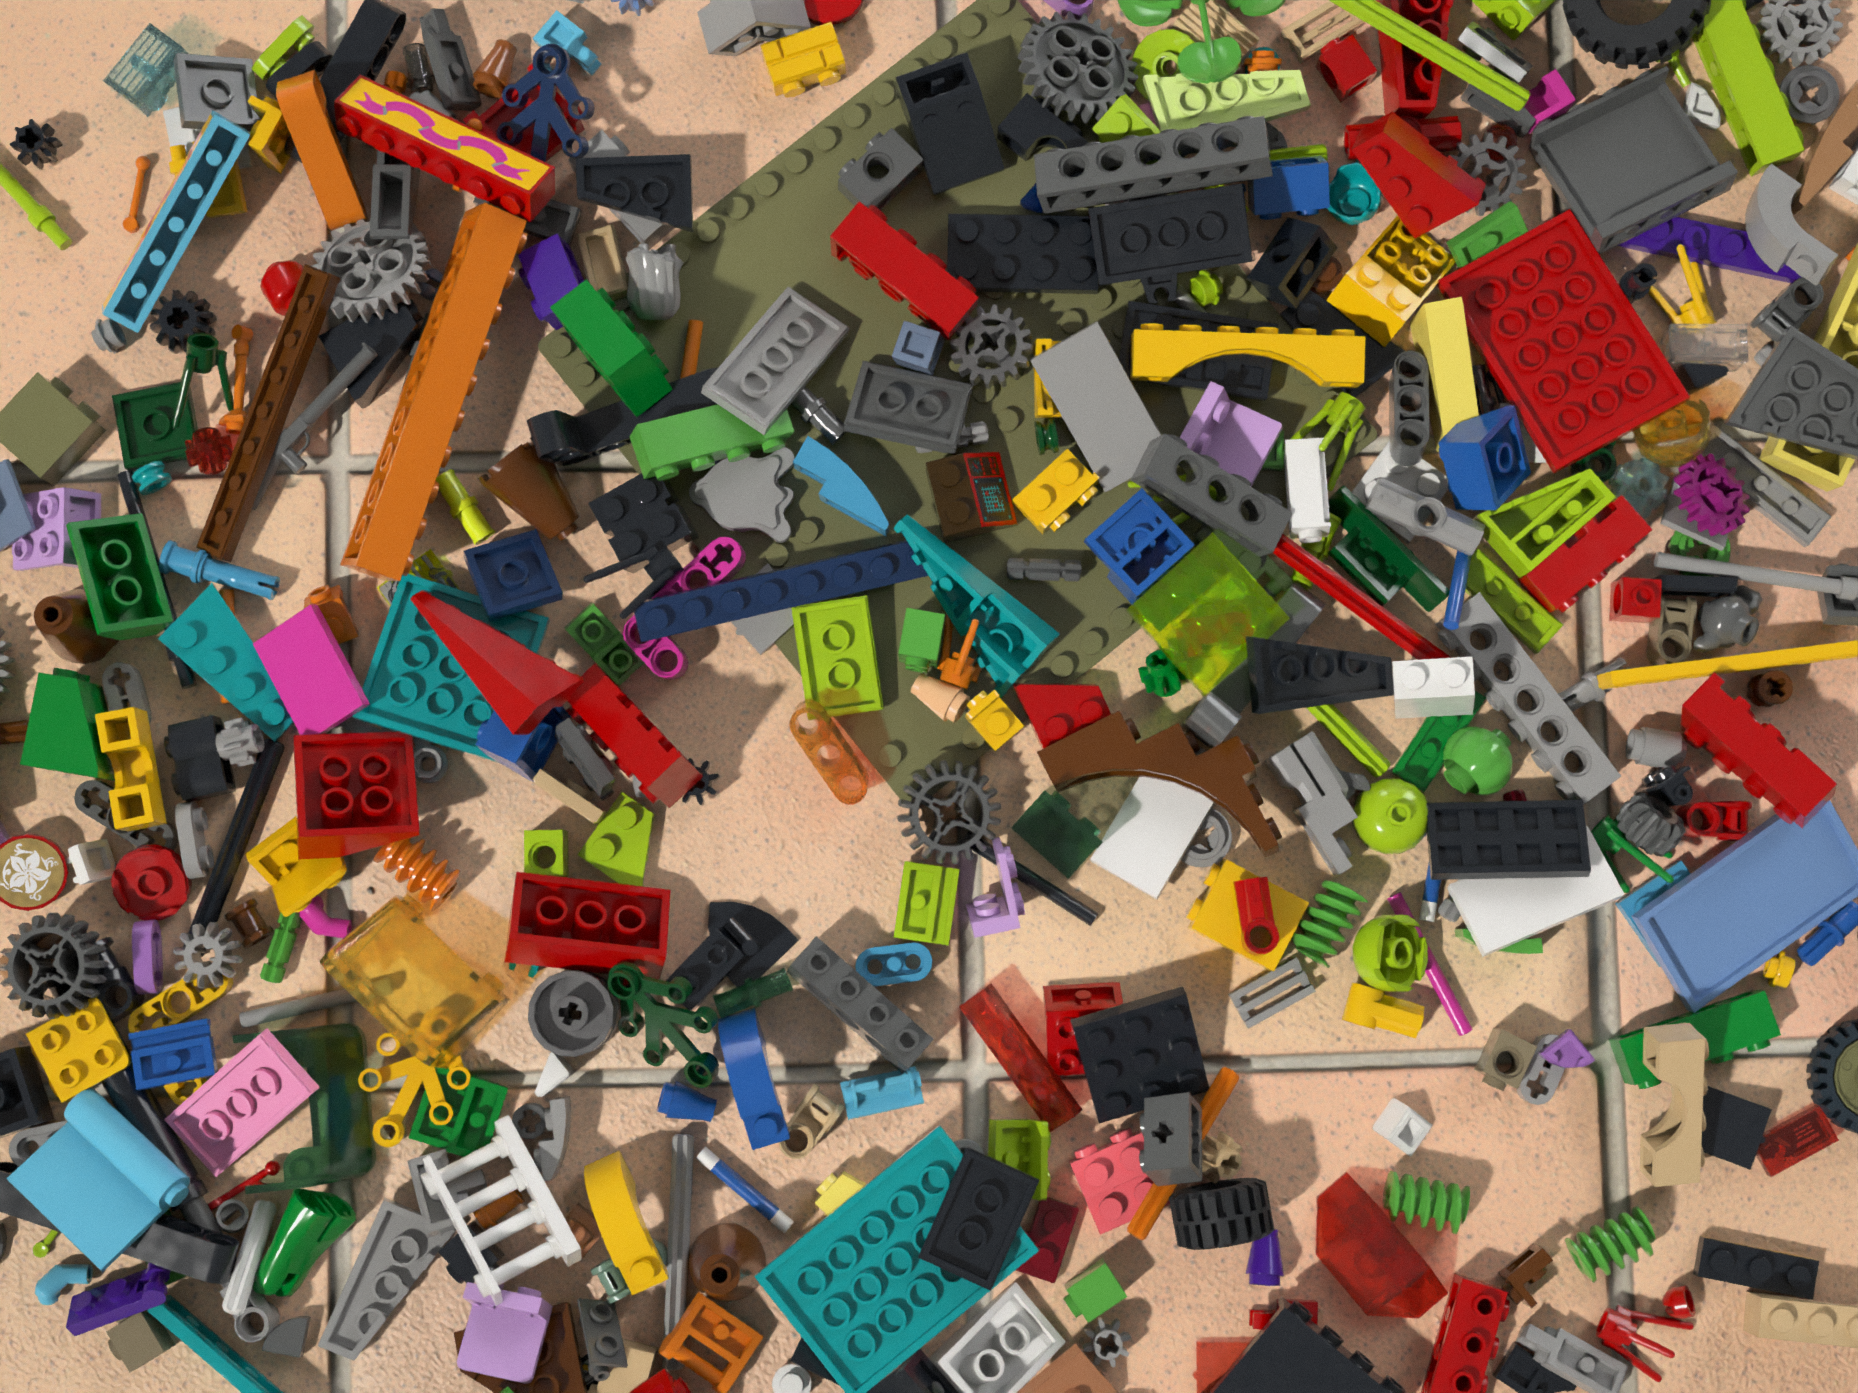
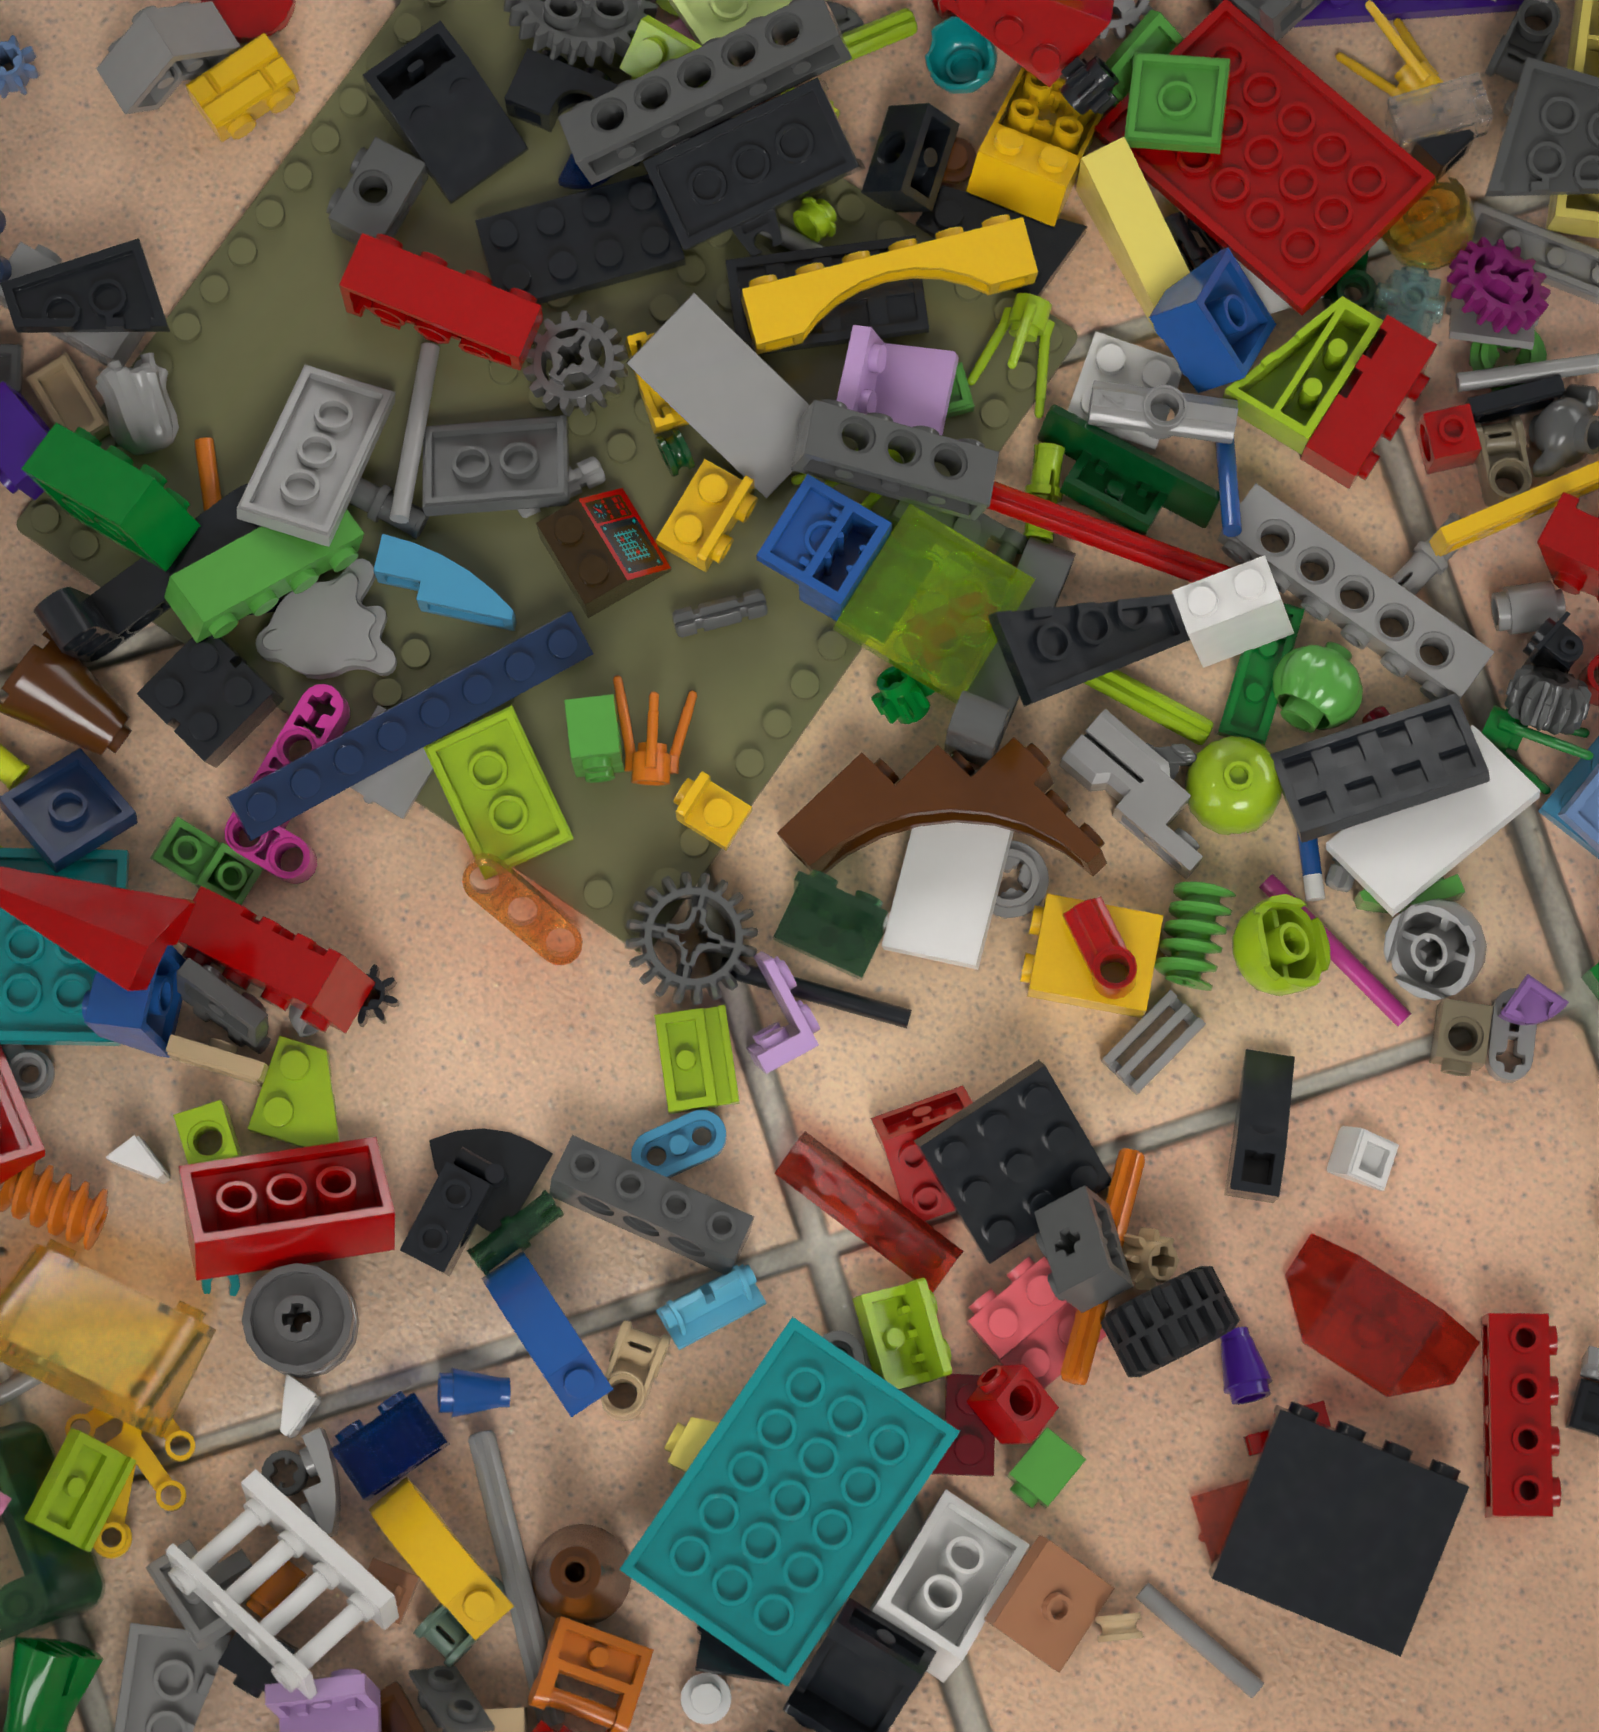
camera: 15 degrees left, 5 degrees down
(373, 1092) = (80, 1489): none -> lime plate
(473, 1114) = (211, 1487): green slope -> none
(491, 854) = (139, 1158): none -> white slope
(613, 1124) = (389, 1444): none -> clear blue brick
(631, 986) = (411, 1292): dark green plant -> none
(661, 568) = (250, 745): black plant -> none
(744, 1189) = (576, 1478): blue bar -> none
(855, 364) = (414, 433): none -> light grey bar
(918, 348) = (486, 390): sand blue brick -> none
(941, 697) = (640, 803): light nougat cone -> none
(978, 1218) = (873, 1412): black tile -> none
(1008, 632) = (699, 701): teal wedge -> none
(1061, 709) = (789, 774): red wing -> none
(1084, 1237) = (1012, 1404): none -> red brick
(1109, 1353) = (1091, 1518): light grey gear -> none
(1295, 186) = (880, 69): blue brick -> none
(1306, 490) = (1009, 422): white window -> none
(1334, 1083) = (1260, 1127): none -> black slope
(1374, 1009) = (1278, 1023): yellow piece -> none
(1410, 392) = (1100, 271): dark grey beam -> none
(1426, 1201) = (1417, 1237): bright green piece -> none
(1445, 247) = (1089, 85): none -> black gear
(1507, 990) = (1435, 948): none -> light grey cylinder
(1509, 280) = (1177, 102): none -> bright green plate
(1511, 603) = (1306, 490): lime tile -> none
(1526, 1267) = (1565, 1280): reddish brown bracket -> none
(1638, 286) = (1332, 65): black pin -> none

